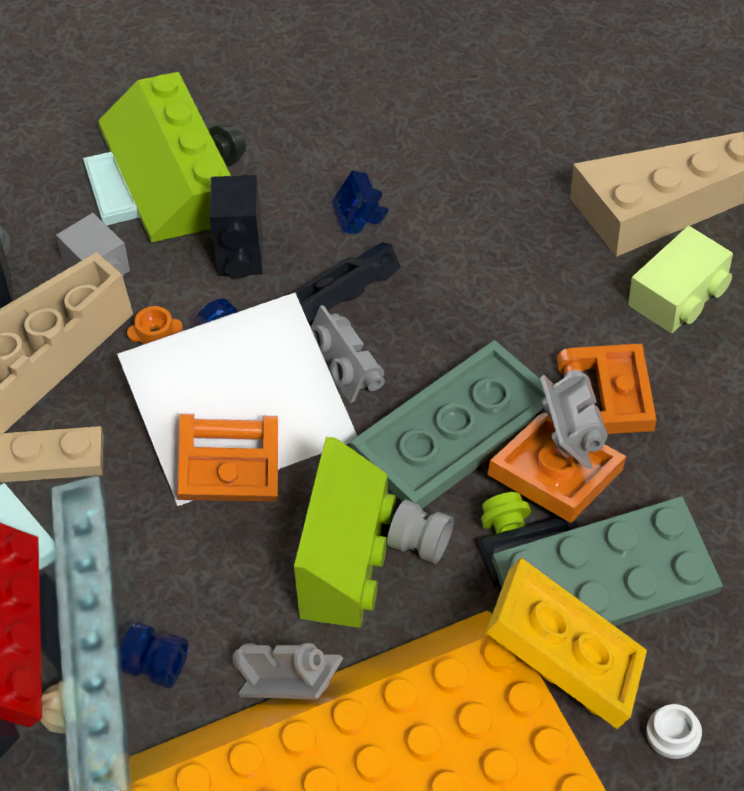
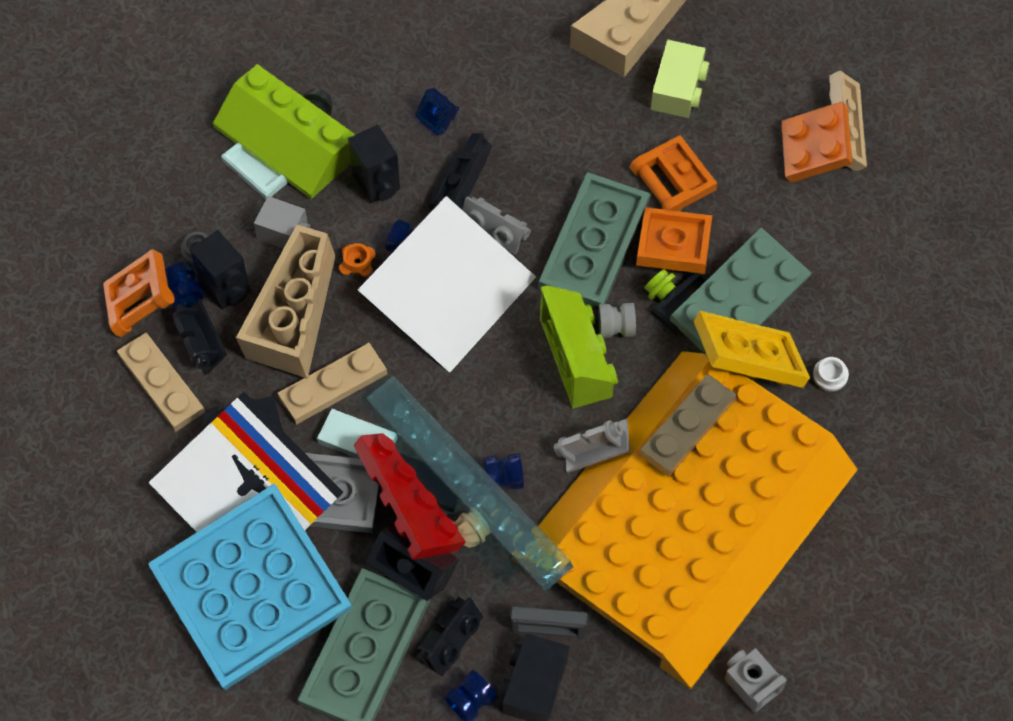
camera: 30 degrees left, 10 degrees up
(228, 472) = (473, 336): orange plate -> none
(412, 699) = (687, 425): none -> dark tan plate
(574, 416) = (680, 212): light grey hinge -> none

